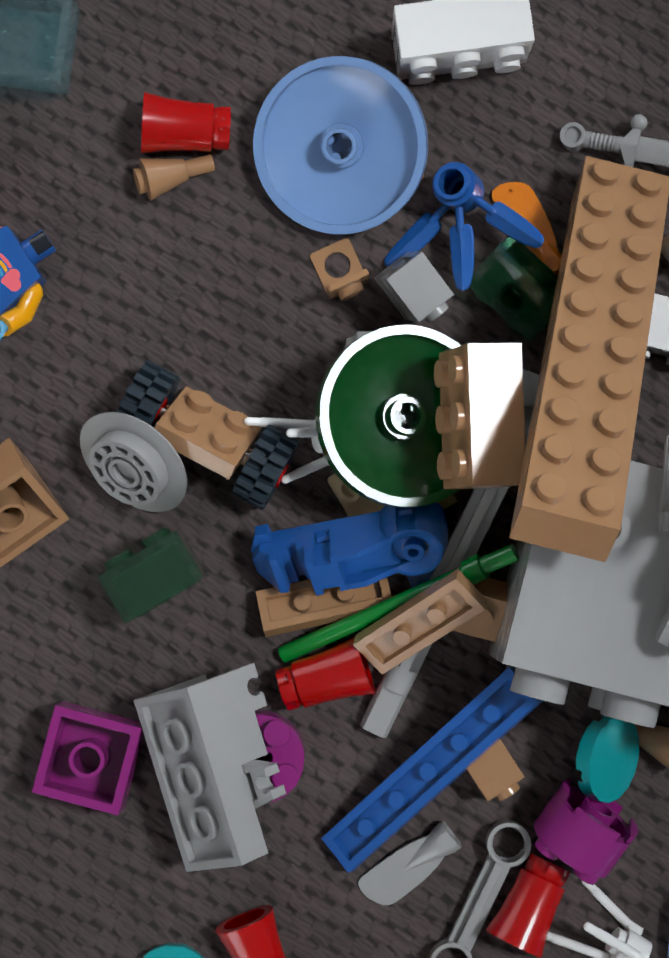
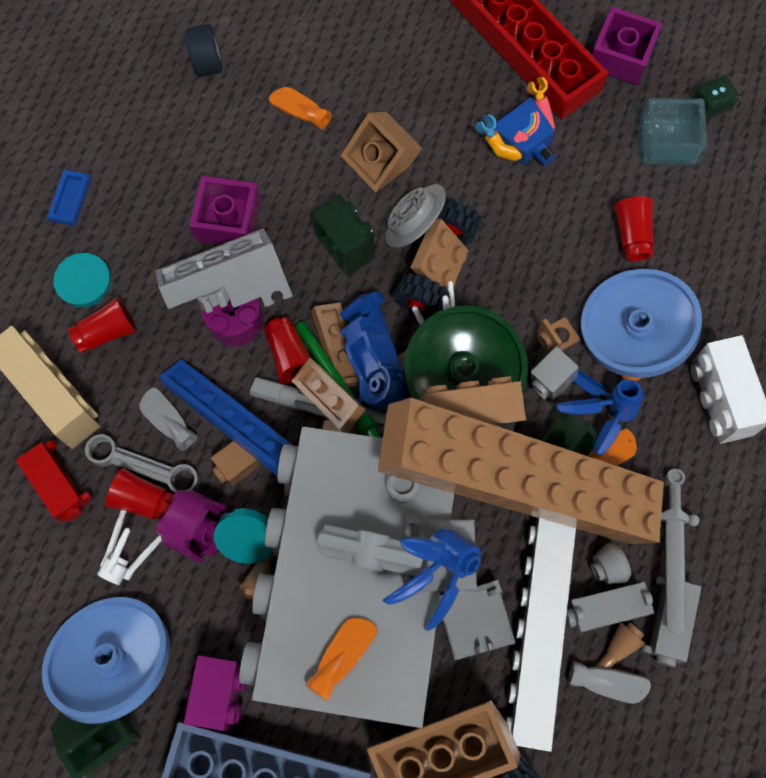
camera: 85 degrees right, 15 degrees down
(161, 175) = (602, 222): medium nougat cone -> none

